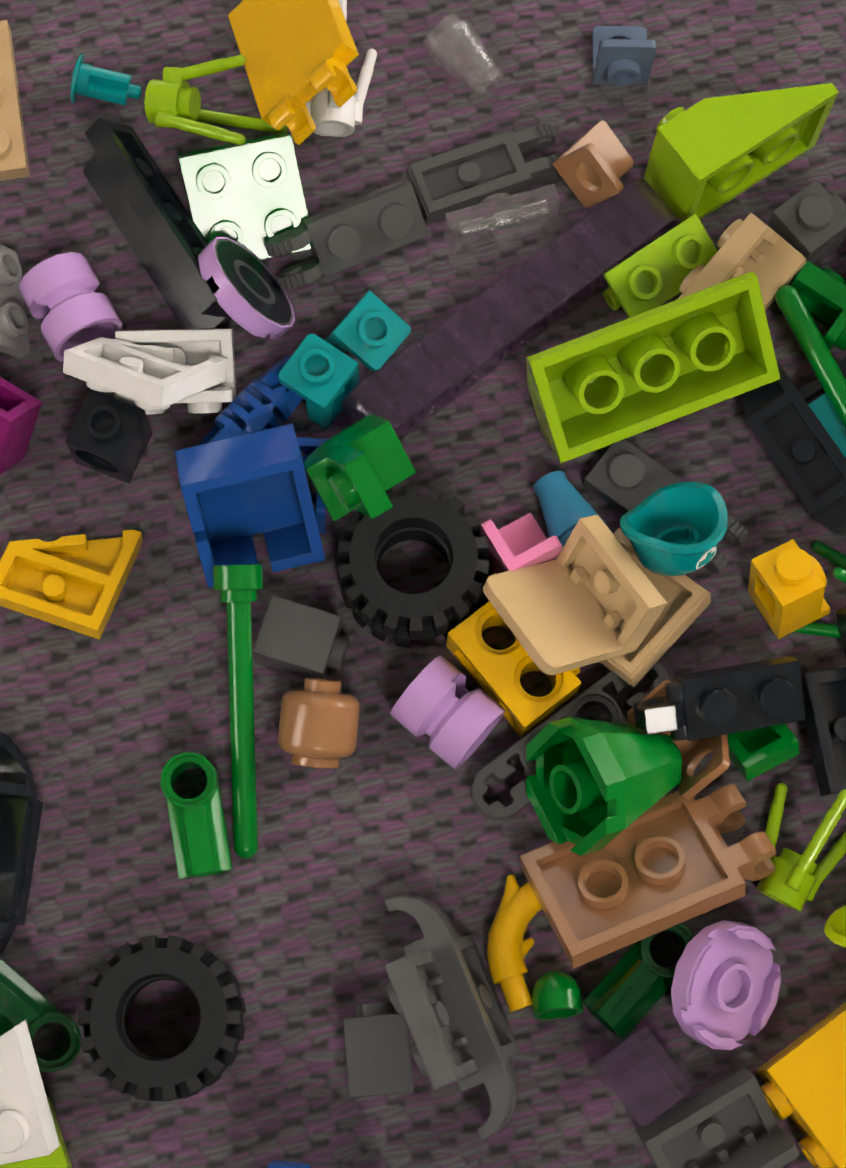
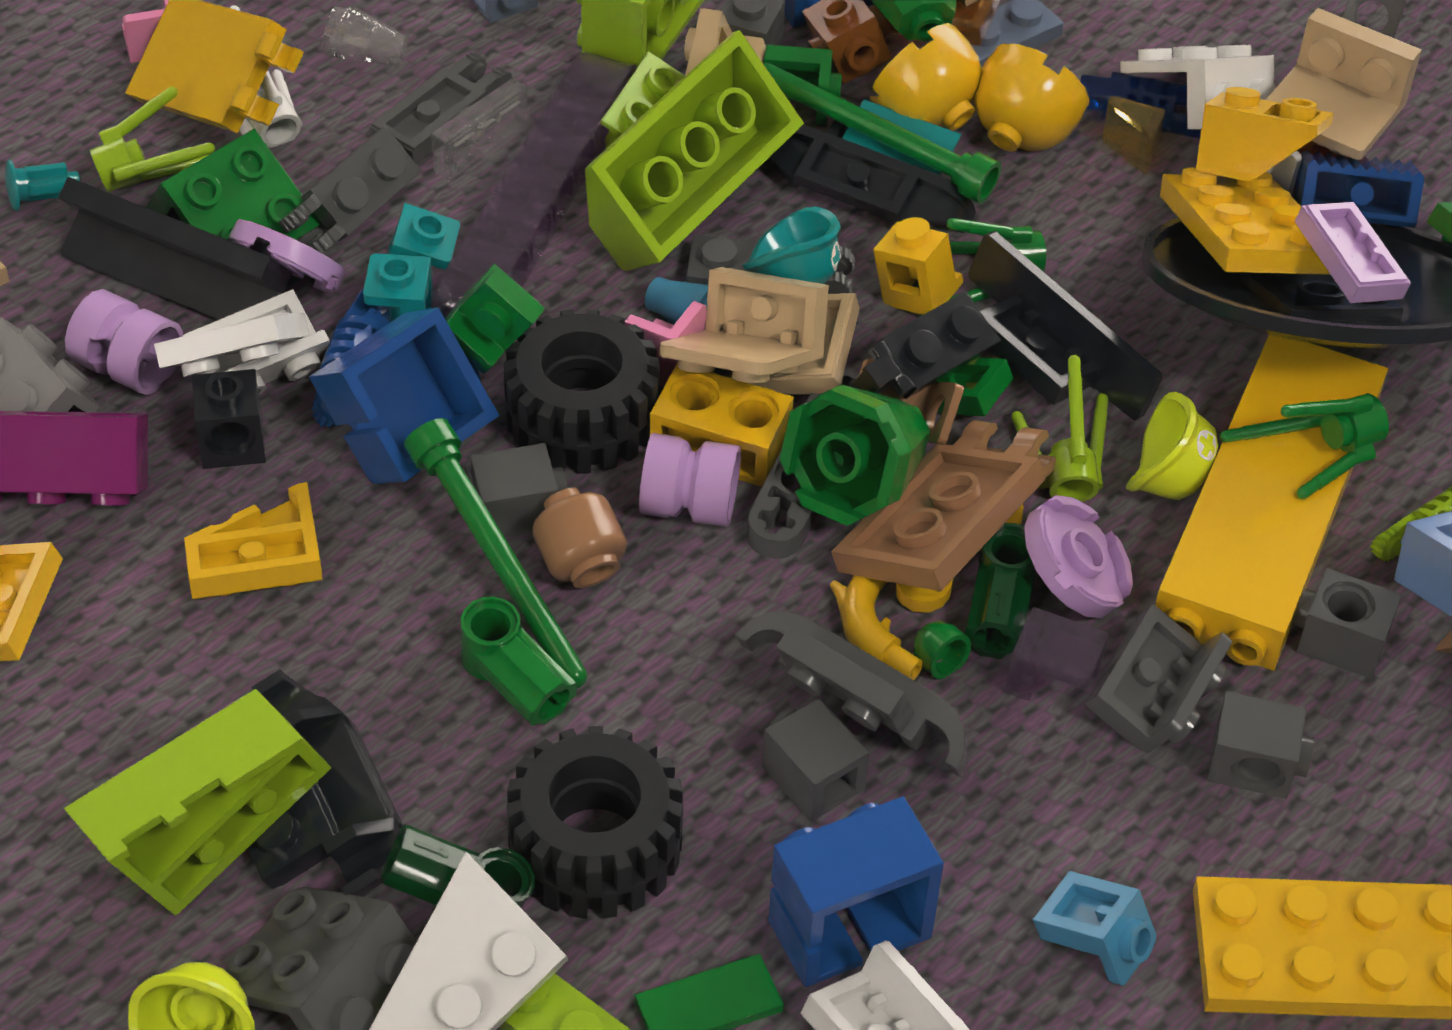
camera: 30 degrees left, 25 degrees down
(594, 165) = (538, 61): medium nougat bracket -> none

